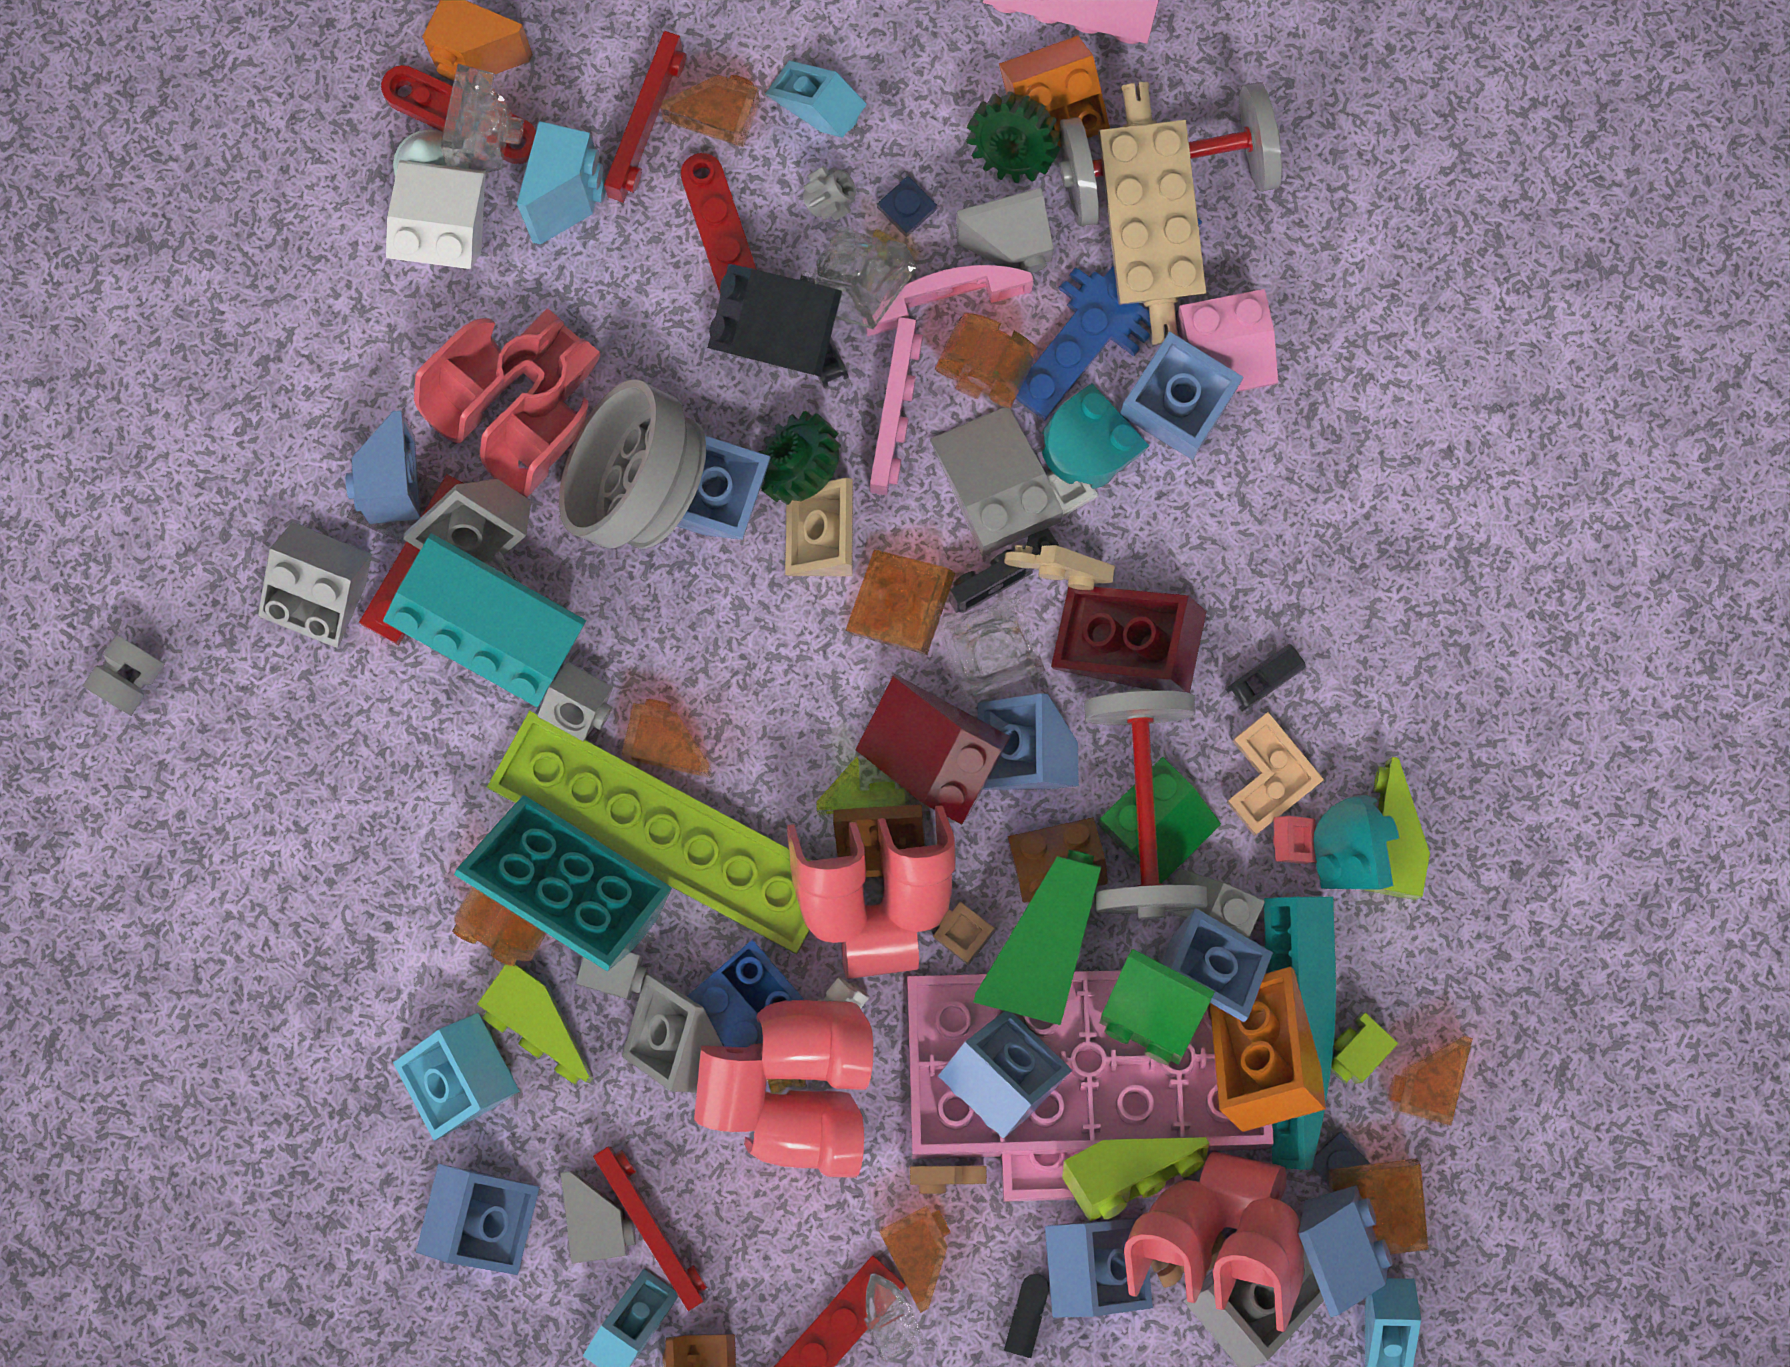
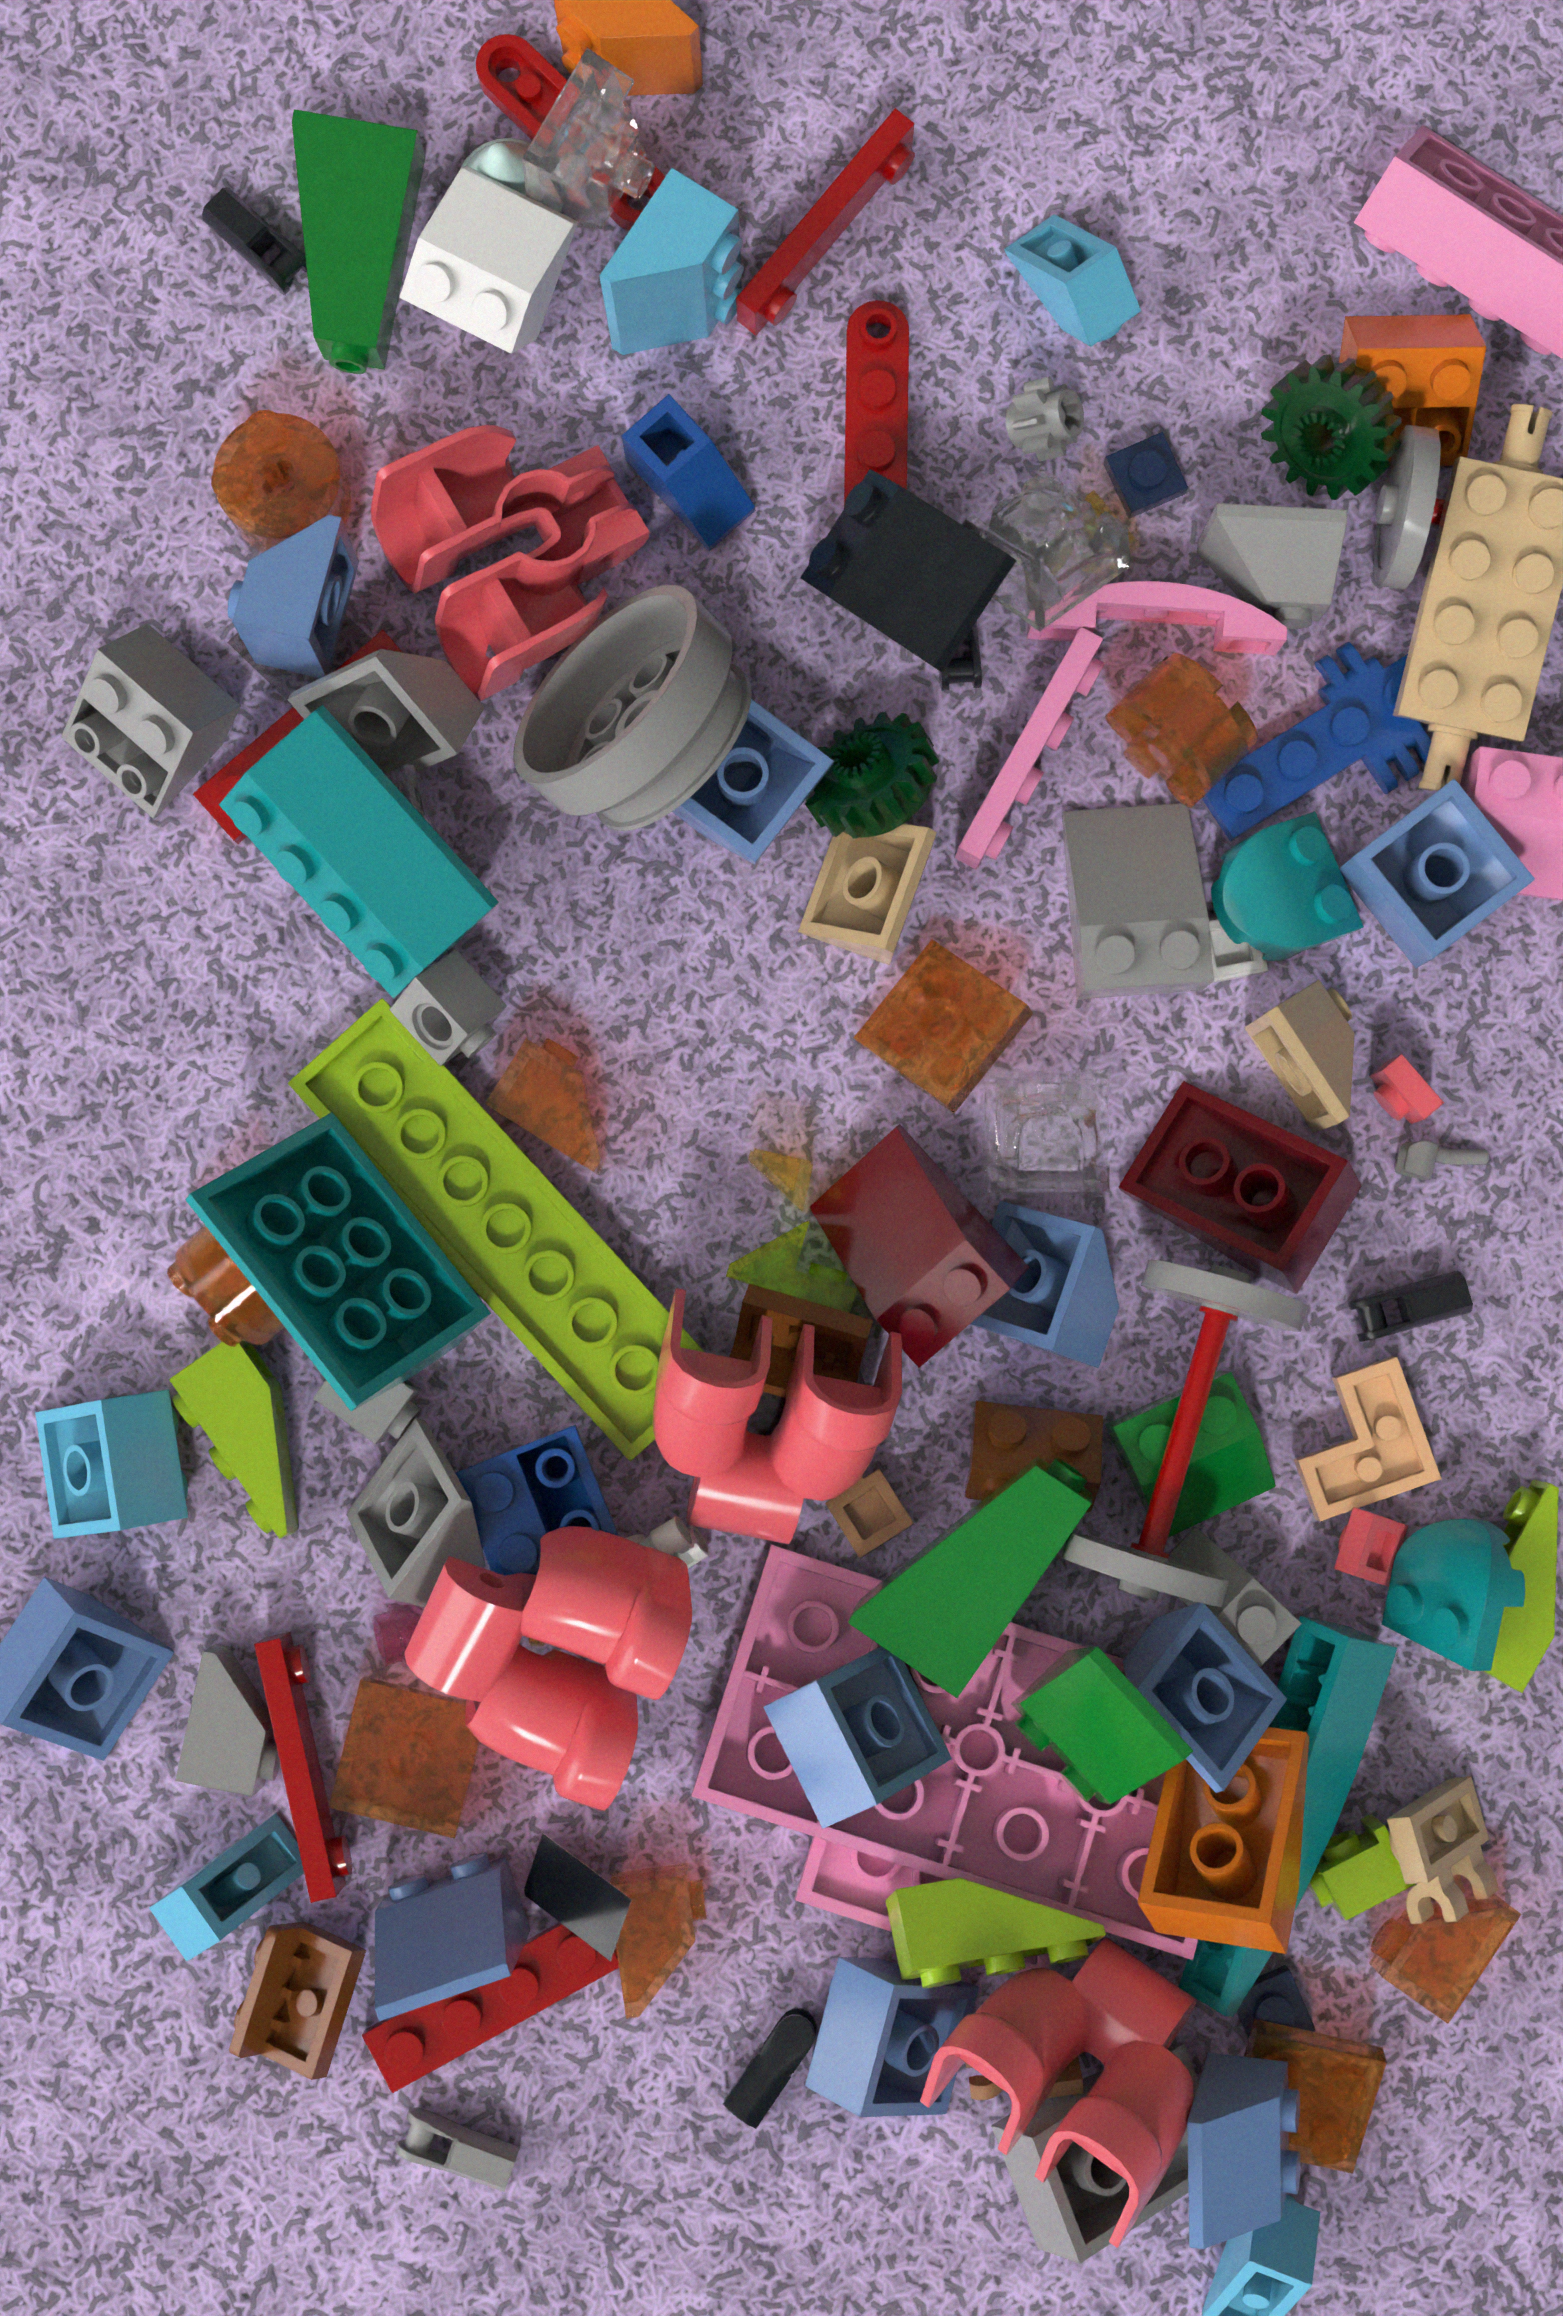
camera: 20 degrees right, 5 degrees up
(272, 251) = (253, 238): none -> black bar
(336, 383) = (273, 451): none -> clear orange brick
(339, 217) = (357, 224): none -> green slope
(610, 306) = (687, 472): none -> blue slope
(681, 1120) = (394, 1631): none -> clear pink plate
(715, 108) = (928, 245): clear orange slope -> none
(718, 1199) = (406, 1758): none -> clear orange plate
(783, 1295) = (447, 1934): none -> medium blue slope
(831, 732) = (785, 1173): none -> clear yellow slope
(860, 1247) = (577, 1896): none -> black sticker
(890, 1319) = (583, 2009): clear plate -> none
(934, 1178) = (714, 1835): medium nougat plate -> none
(975, 588) = (1102, 1033): black hinge -> none
(1062, 564) = (1185, 1053): tan hinge -> none
(1140, 535) = (1310, 1052): none -> tan slope
(1211, 541) = (1404, 1091): none -> coral plate
(1237, 580) = (1419, 1158): none -> light grey hand
(1408, 1013) = (1436, 1844): none -> tan plate

